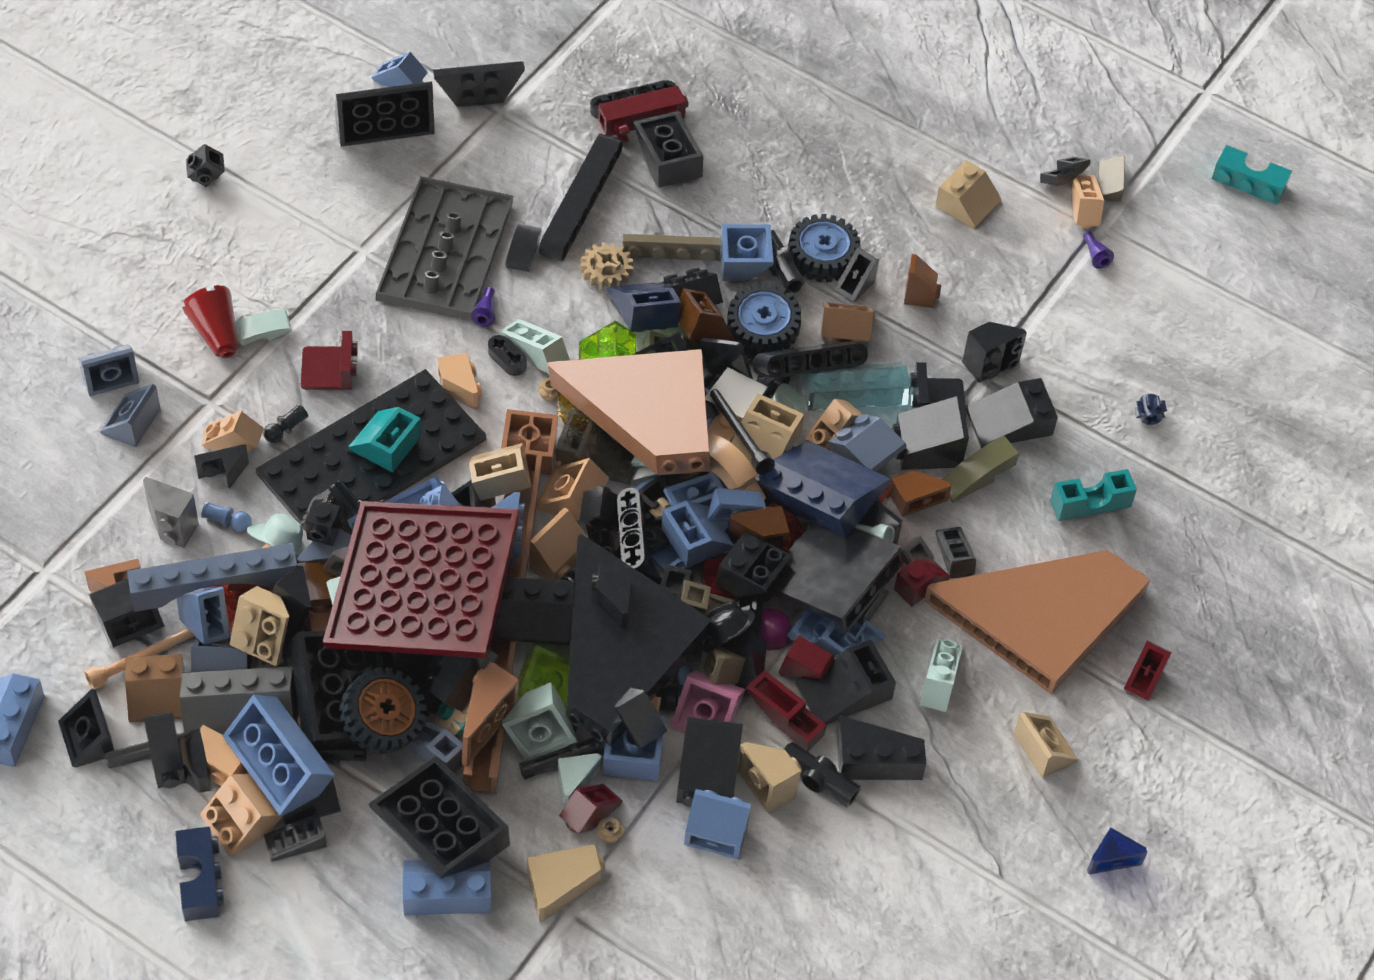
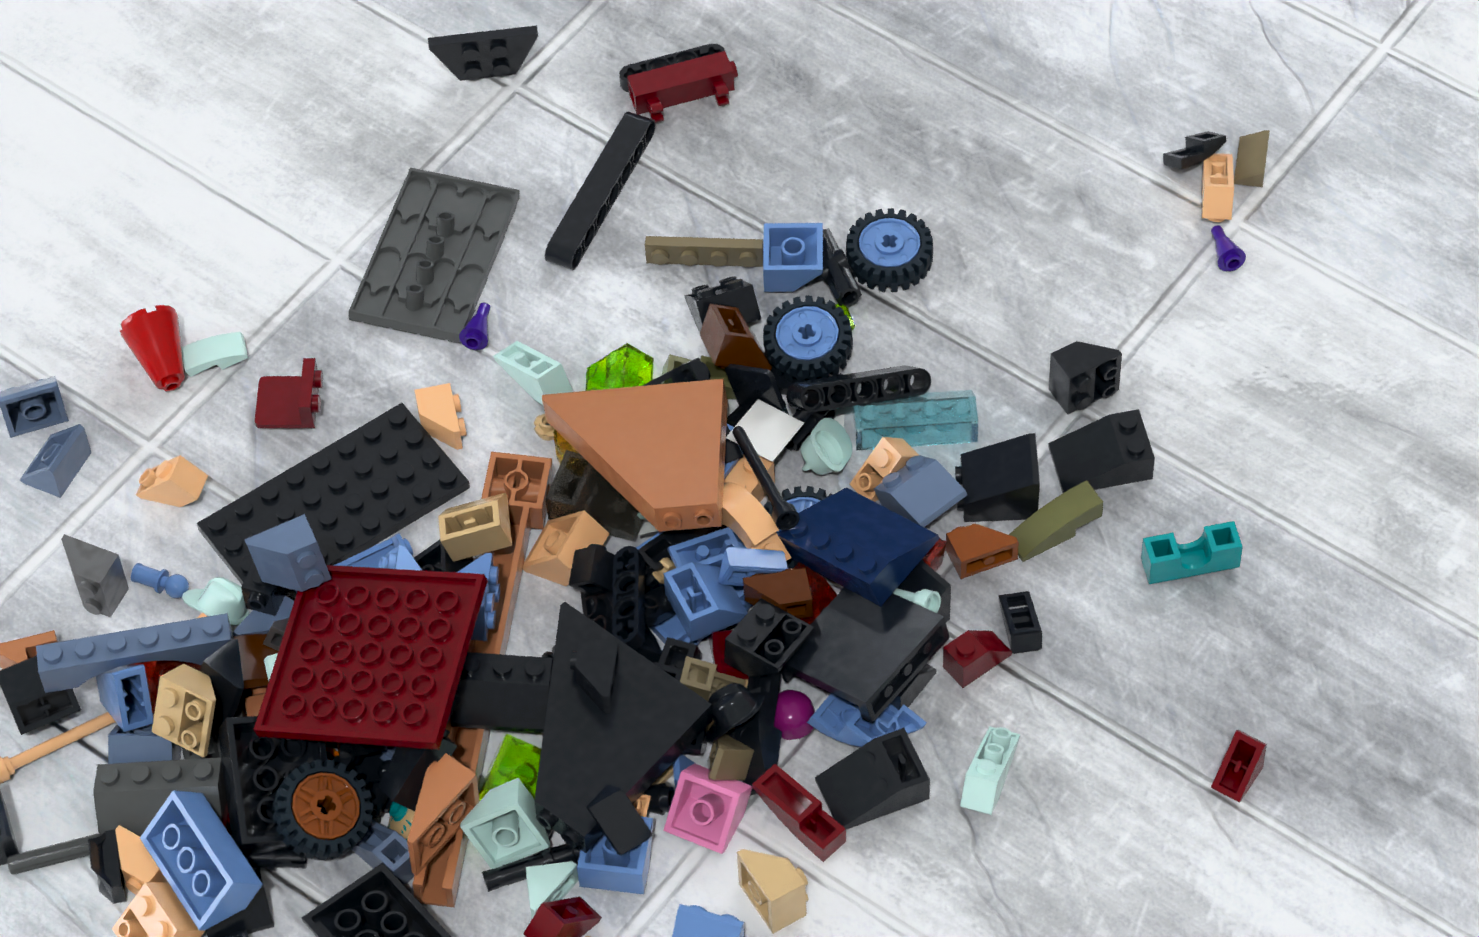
camera: 10 degrees right, 0 degrees up
(153, 685) = (65, 780): medium nougat slope -> none
(165, 750) = (72, 854): black slope -> none
(205, 165) = (155, 158): black brick -> none
(229, 461) = (165, 514): black slope -> none
(274, 432) = (221, 479): black pin -> none
(349, 493) = (289, 556): none -> sand blue slope
(385, 114) = (369, 93): black slope -> none
(388, 437) = (350, 486): teal slope -> none
(400, 71) = (394, 41): medium blue slope -> none
(504, 357) = (495, 388): black beam -> none
(523, 247) = (527, 253): black slope -> none
(555, 547) = (536, 615): light nougat slope -> none
(606, 265) = (625, 275): tan gear -> none
(647, 306) = (667, 324): dark blue slope -> none
(669, 149) = (709, 130): black slope -> none
(709, 758) = (702, 868): black slope -> none
(771, 427) = (801, 473): tan slope -> none
(806, 660) = (825, 752): dark red slope -> none
(822, 775) = (837, 888): black piece -> none
(846, 322) = (909, 342): medium nougat slope -> none
(858, 275) = (928, 284): black slope -> none
(878, 752) = (905, 863): black wedge -> none
(915, 549) = (970, 619): flat silver slope -> none
(921, 284) = (1003, 294): dark orange slope -> none
(933, 389) = (1009, 424): black bracket -> none
(968, 195) = (1071, 182): tan slope -> none
(1043, 613) = (1120, 696): nougat slope -> none
(1043, 743) = (1107, 852): tan slope -> none
(1150, 409) = (1273, 446): dark blue gear -> none
(1263, 184) = (1444, 163): teal arch -> none

